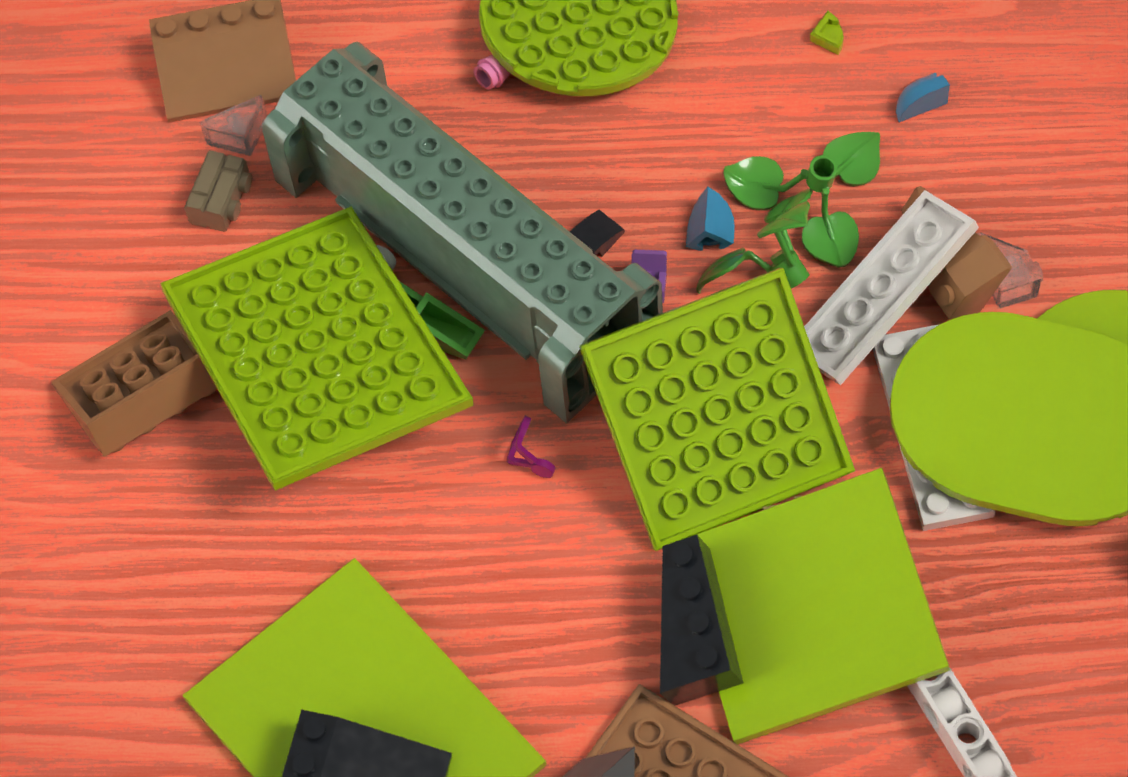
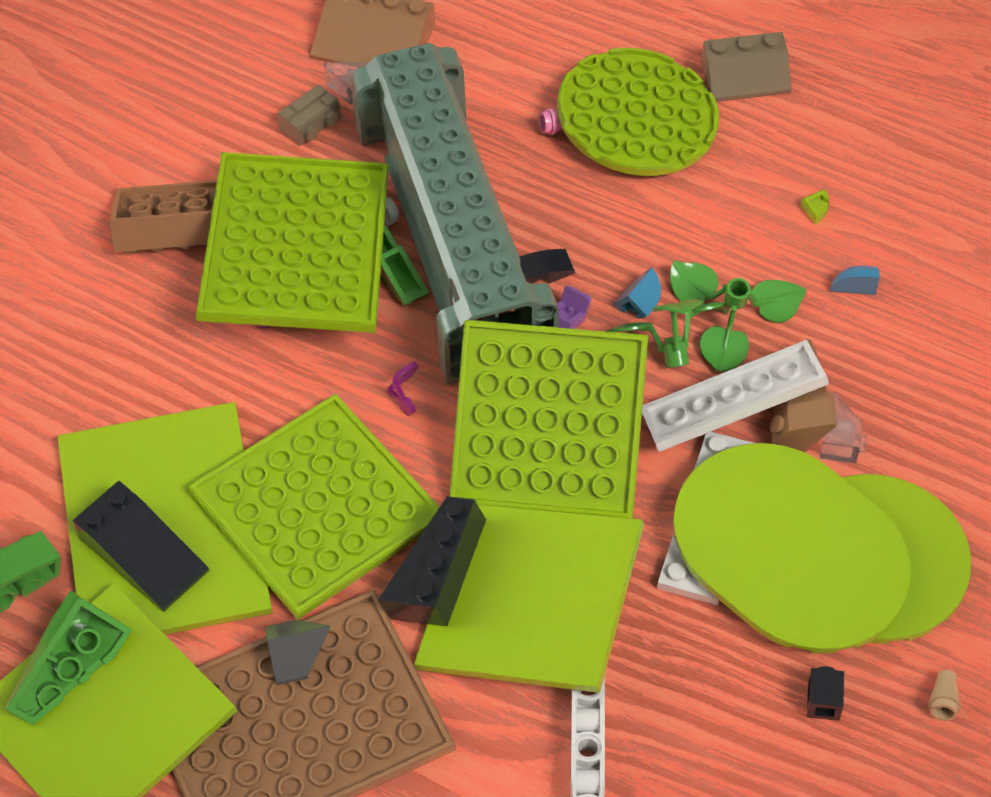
camera: 25 degrees right, 5 degrees down
(518, 625) = (315, 505): none -> lime tile

